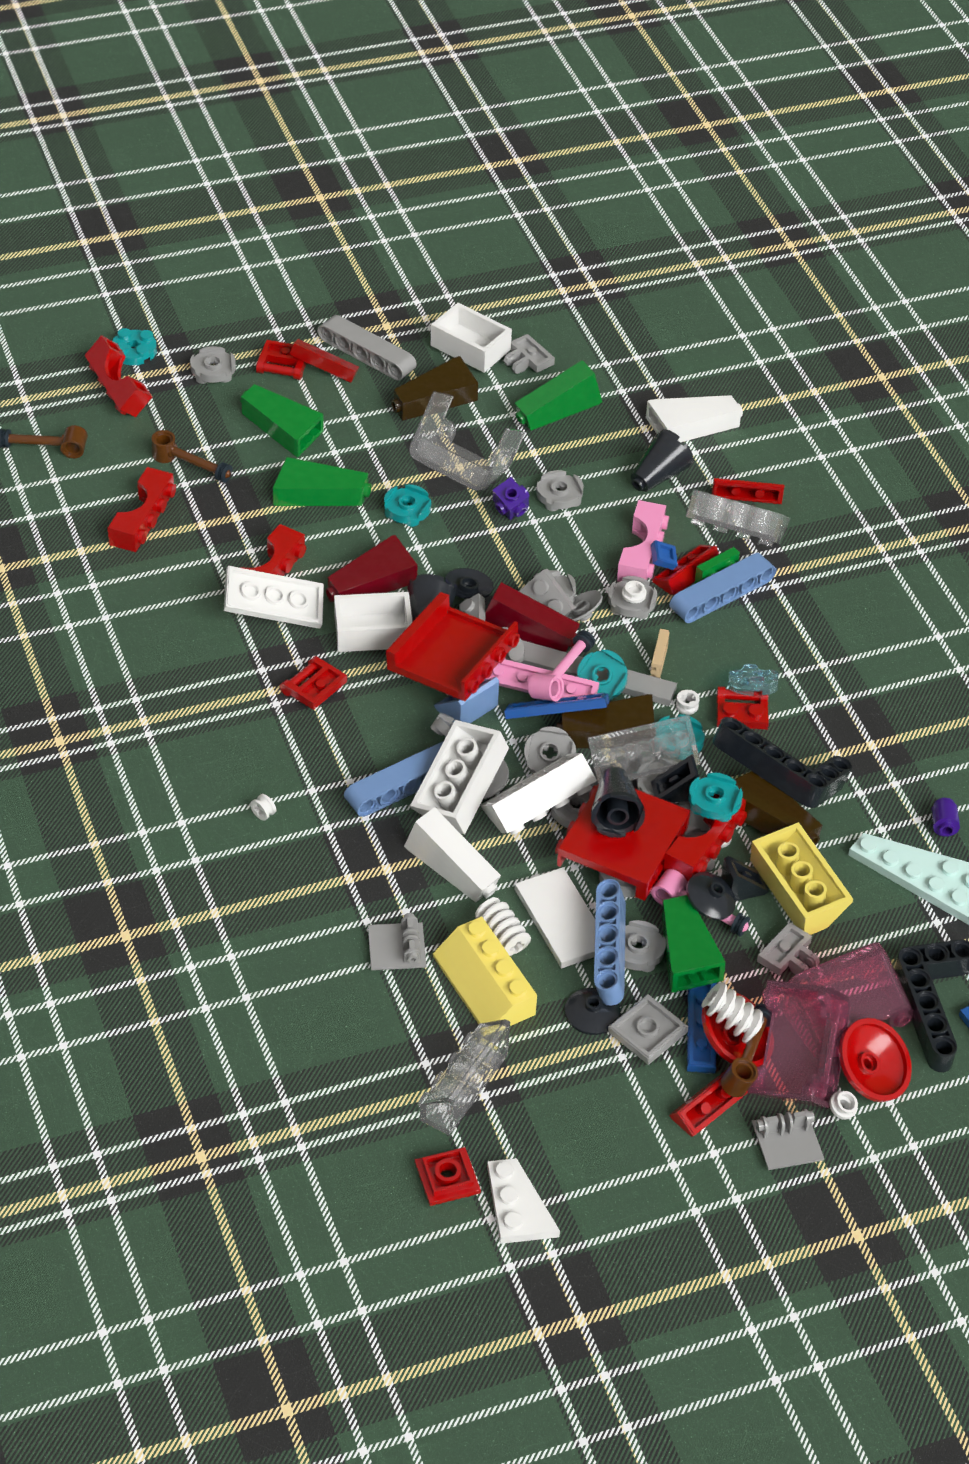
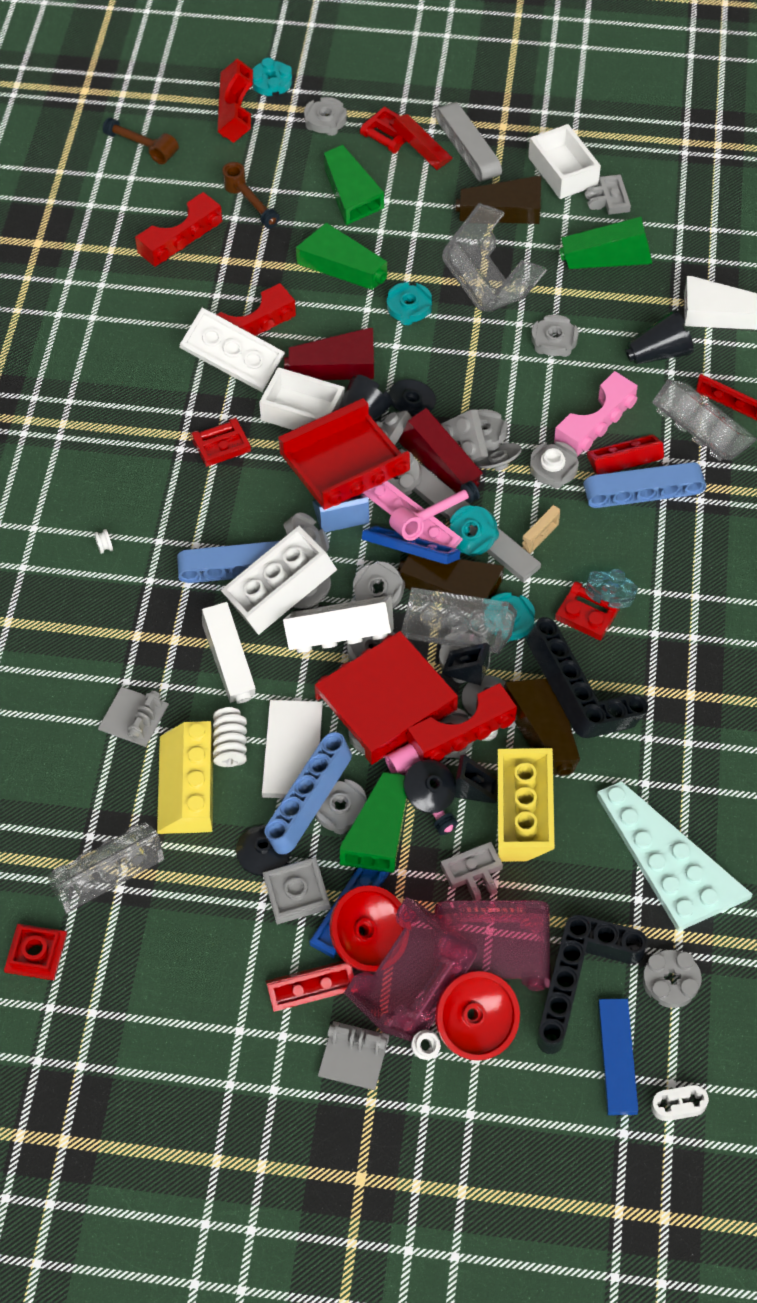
camera: 30 degrees right, 10 degrees up
(511, 498) = (500, 329): dark purple brick -> none
(517, 1204) = (77, 1006): white wing -> none
(617, 804) = (384, 663): black cone -> none
(664, 555) = (604, 433): blue tile -> none
(687, 708) = (540, 578): white bush -> none
(715, 808) = (485, 706): teal plate -> none
(716, 564) = (651, 460): green plate -> none
(734, 1011) = (363, 913): white piece -> none
(743, 1071) = (348, 967): reddish brown piece -> none
(945, 817) = (710, 798): dark purple brick -> none

